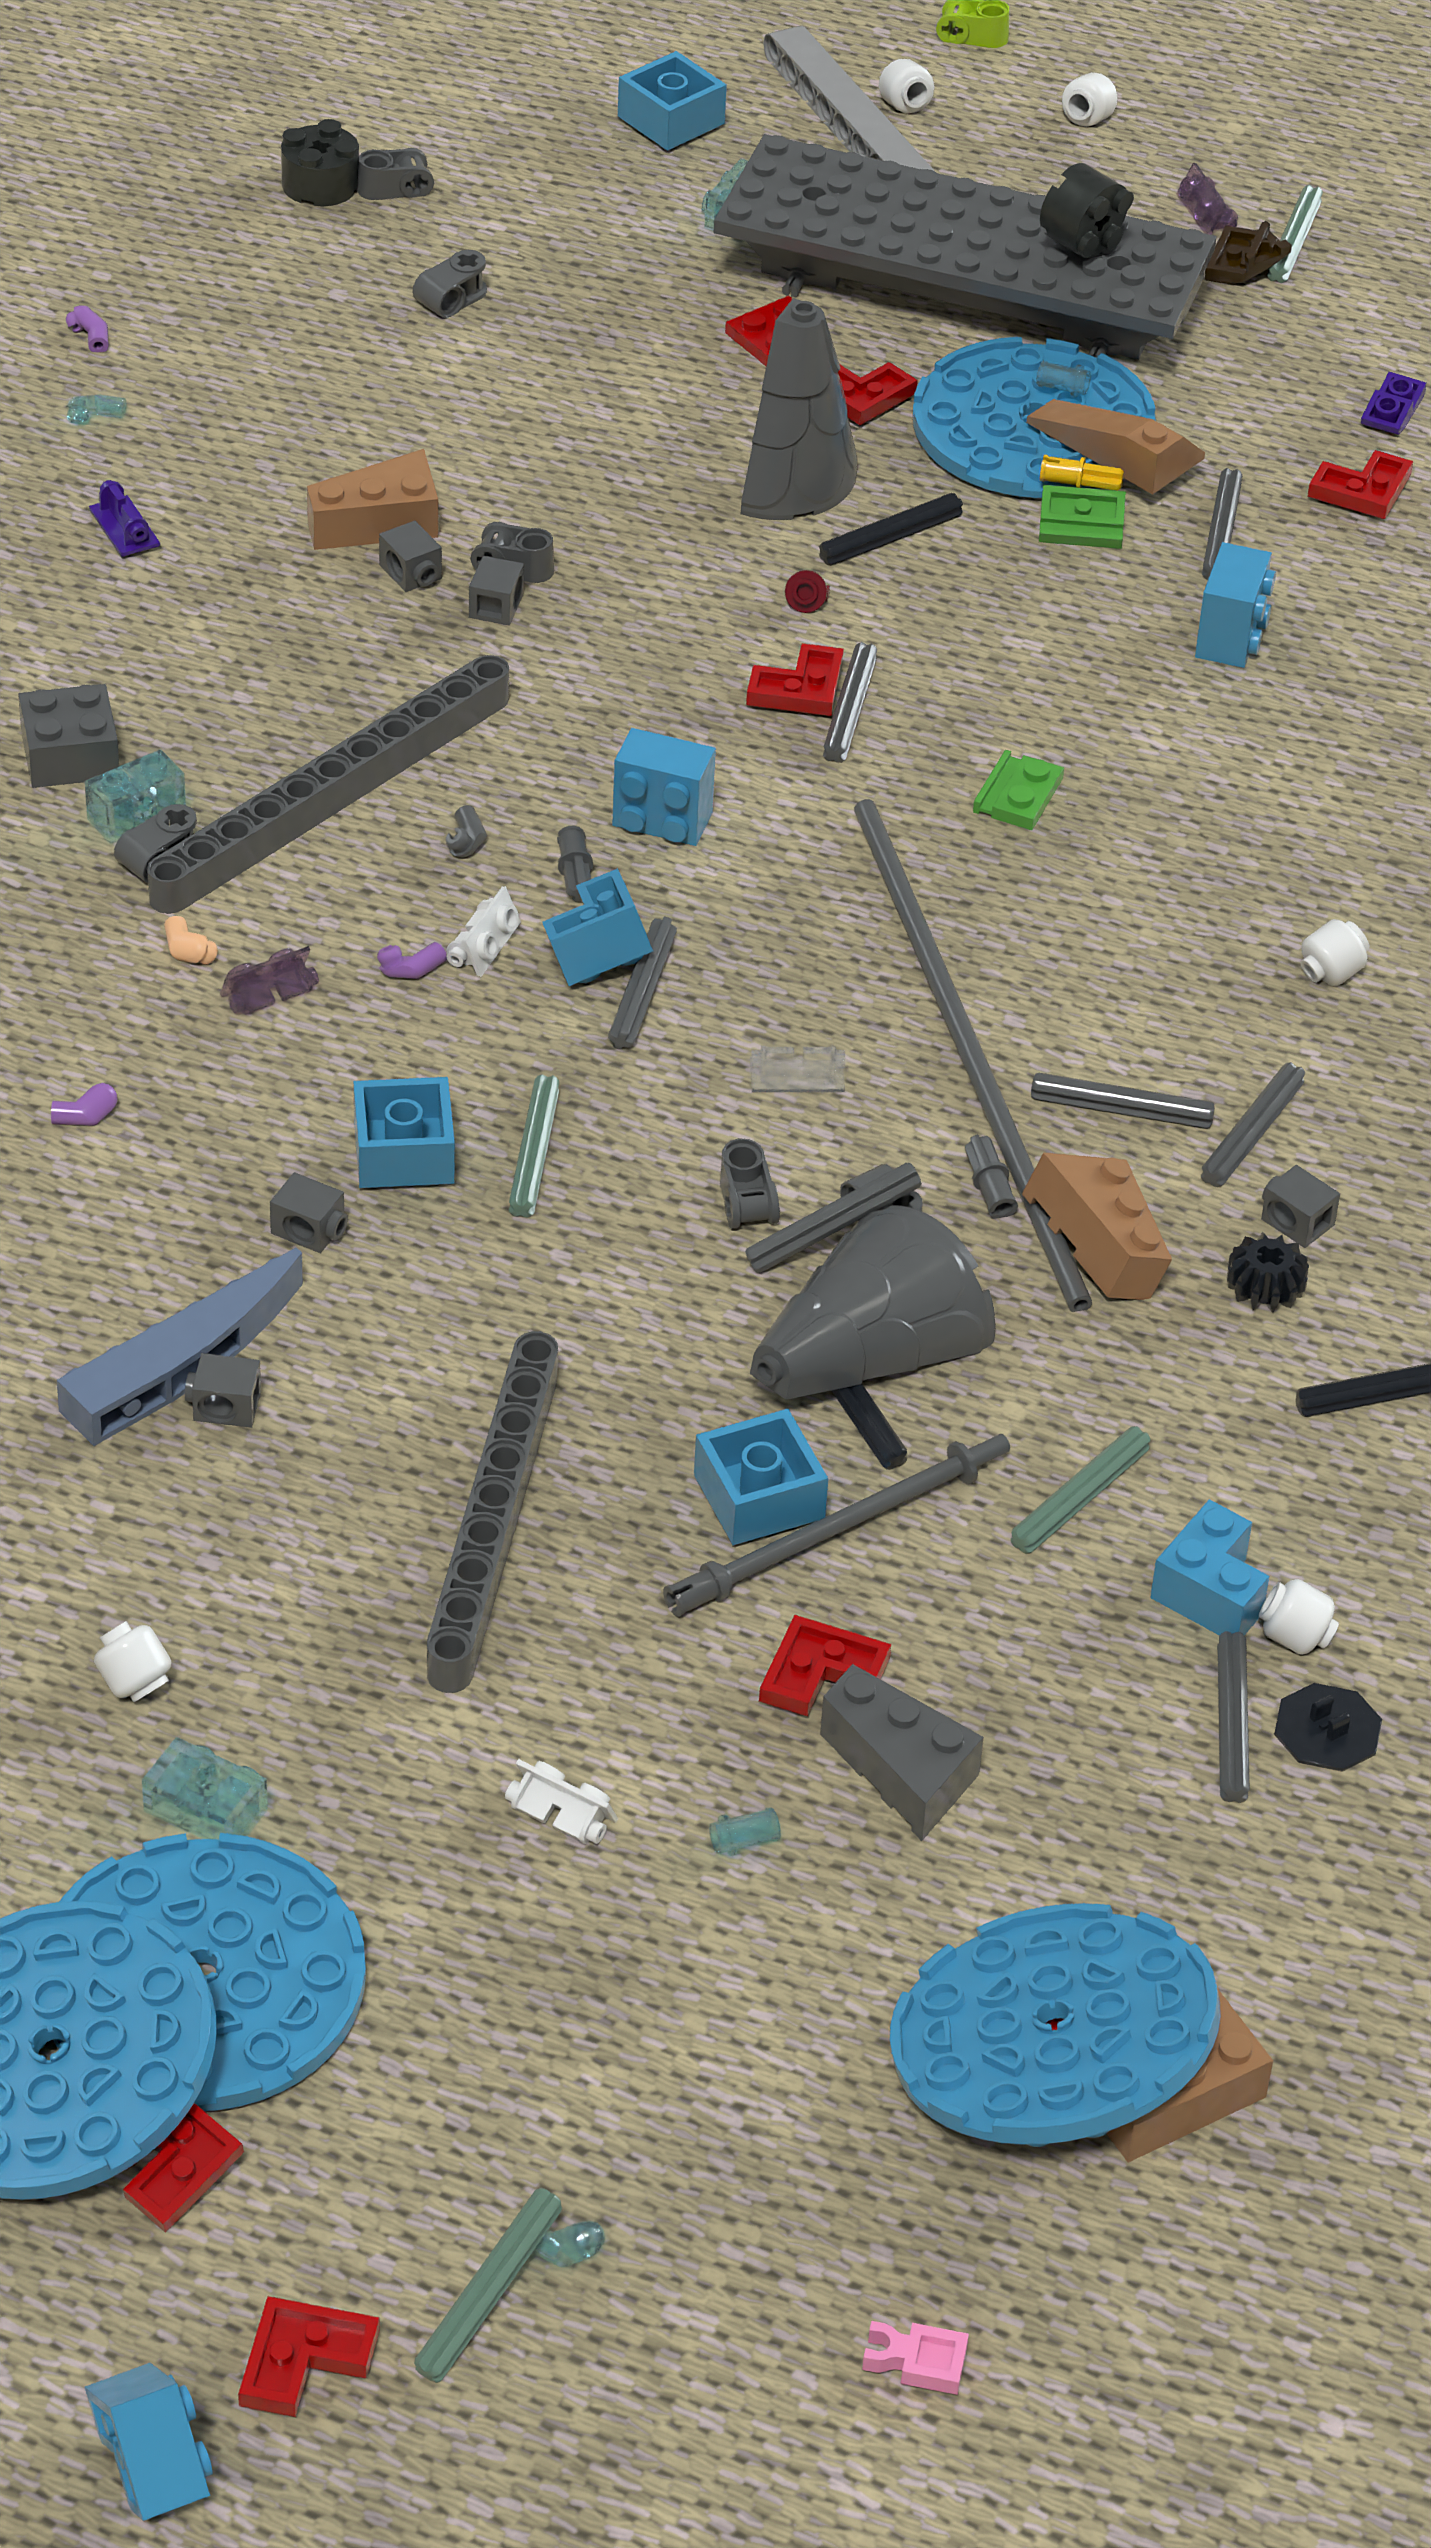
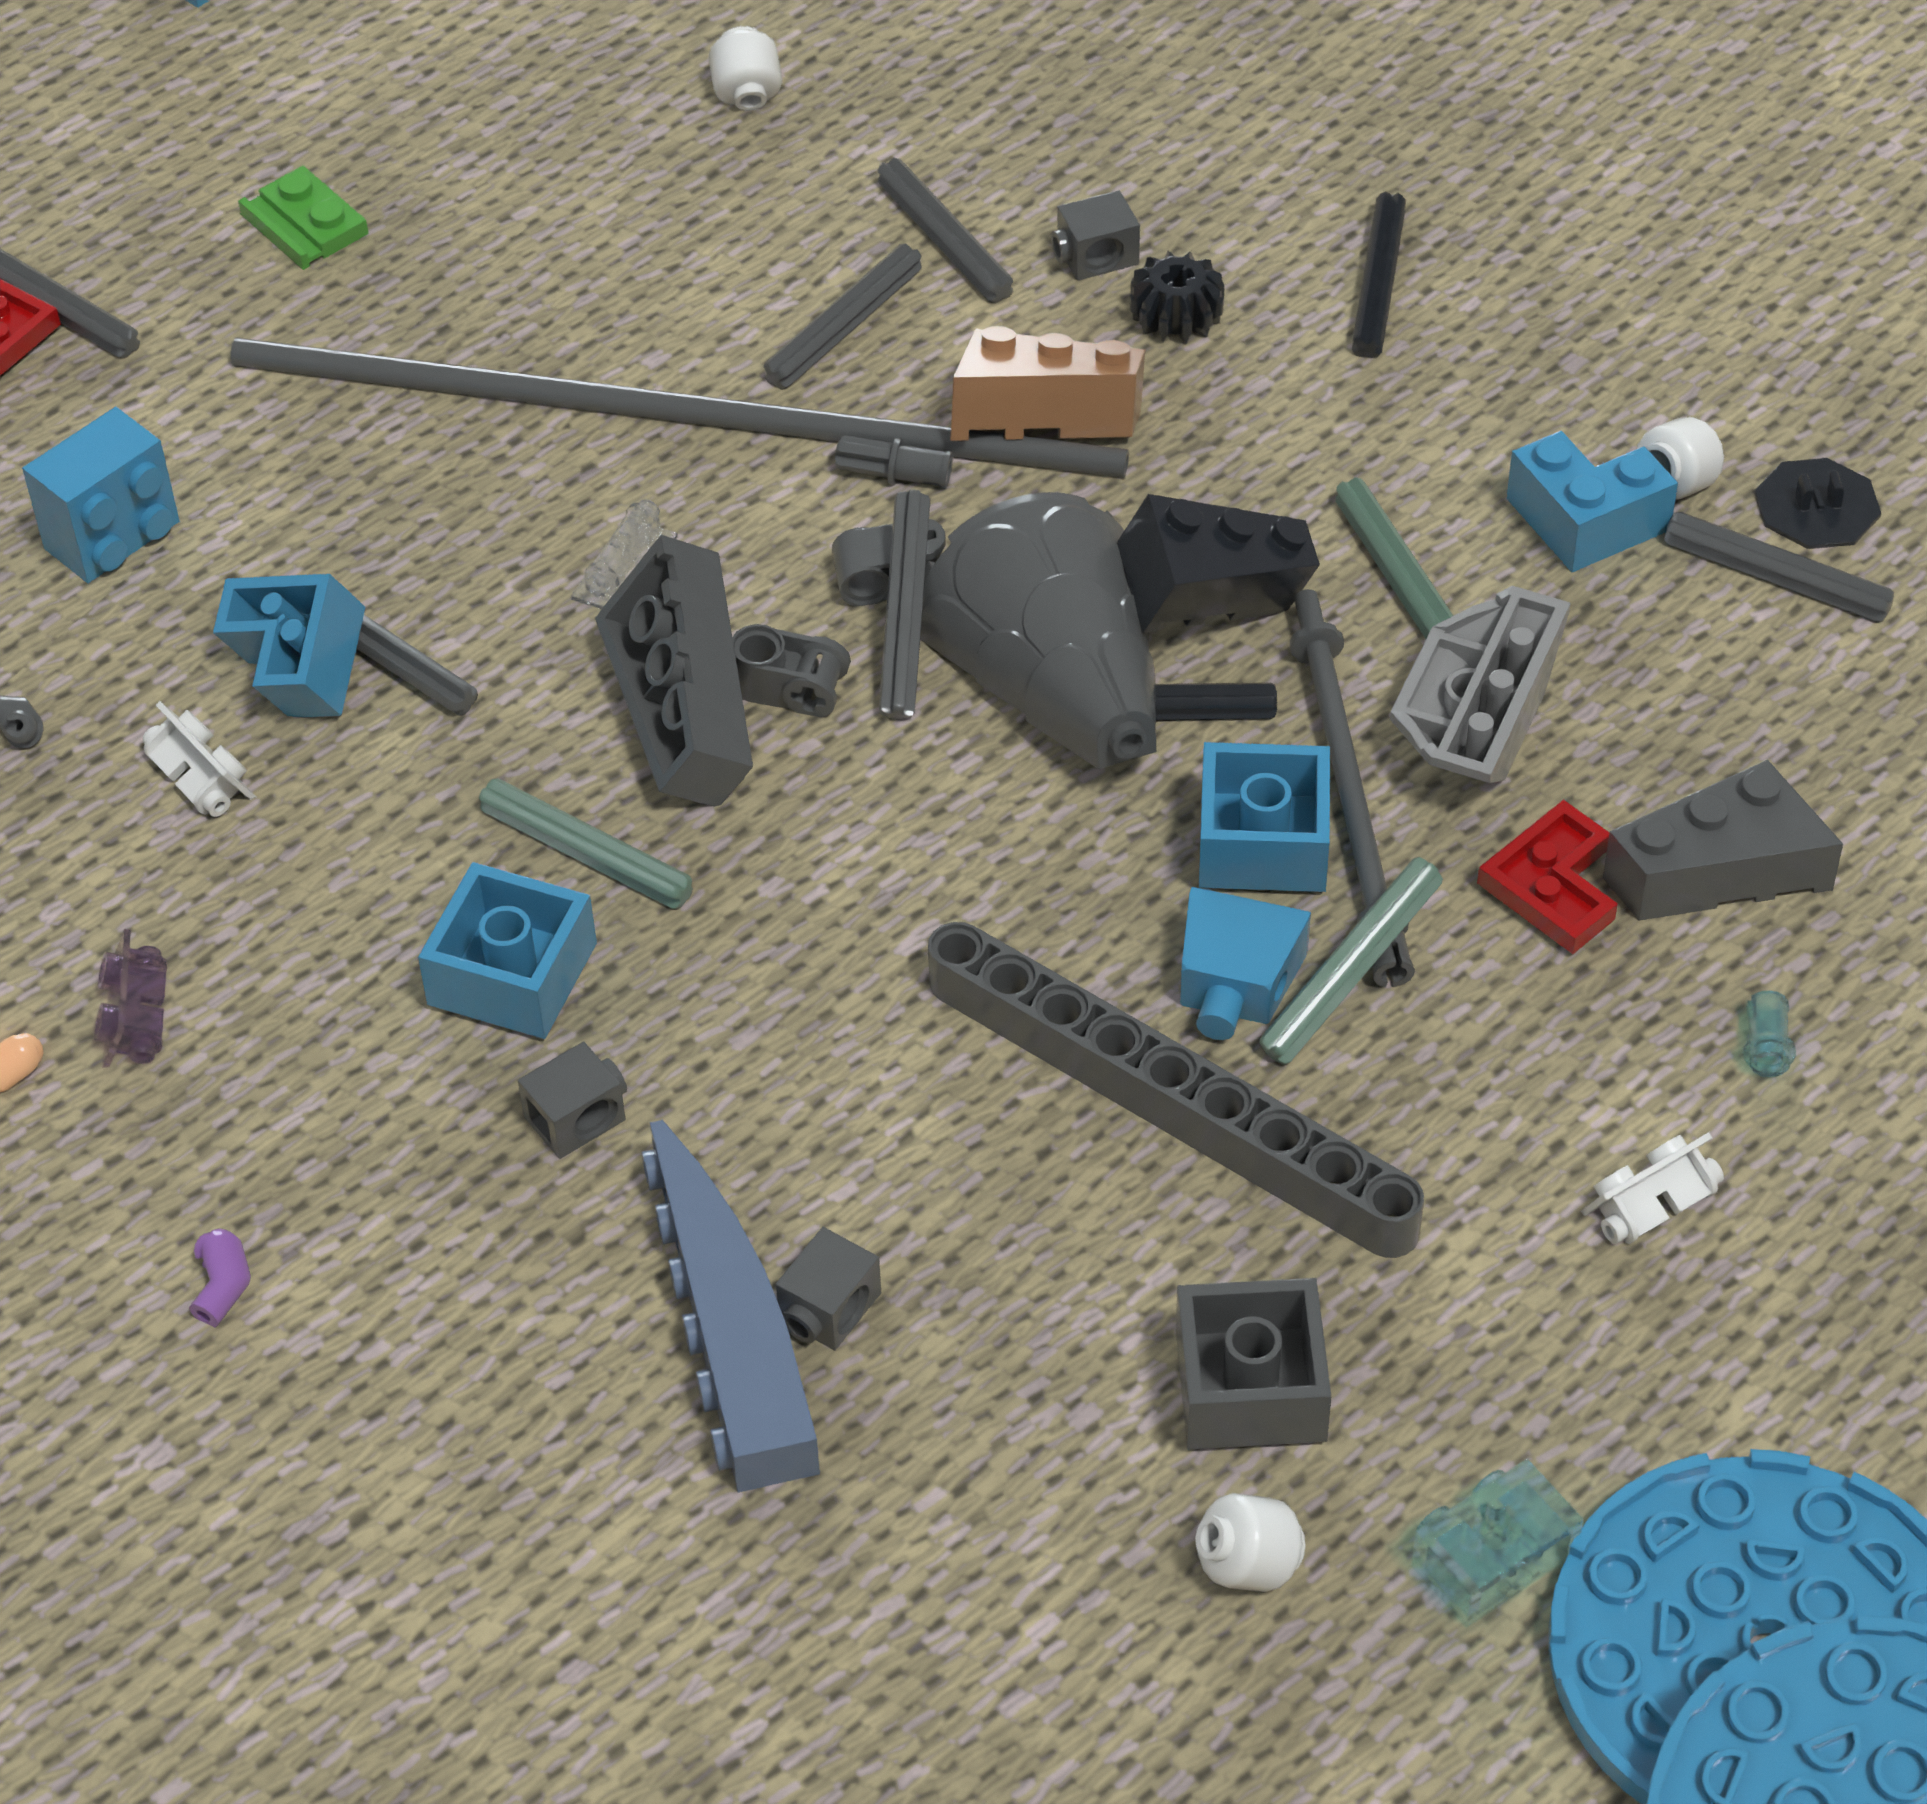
camera: 60 degrees left, 5 degrees up
(274, 1616) = (1252, 1363): none -> dark grey brick
(411, 967) = (199, 853): medium lavender arm -> none
(574, 861) = (138, 634): dark grey axle -> none
(627, 1509) = (1239, 959): none -> dark azure torso
(657, 1565) = (1350, 961): none -> sand green axle
(691, 1126) = (680, 670): none -> dark grey wedge
(956, 1561) = (1481, 683): none -> light grey wedge
(973, 1363) = (1212, 561): none -> black wedge

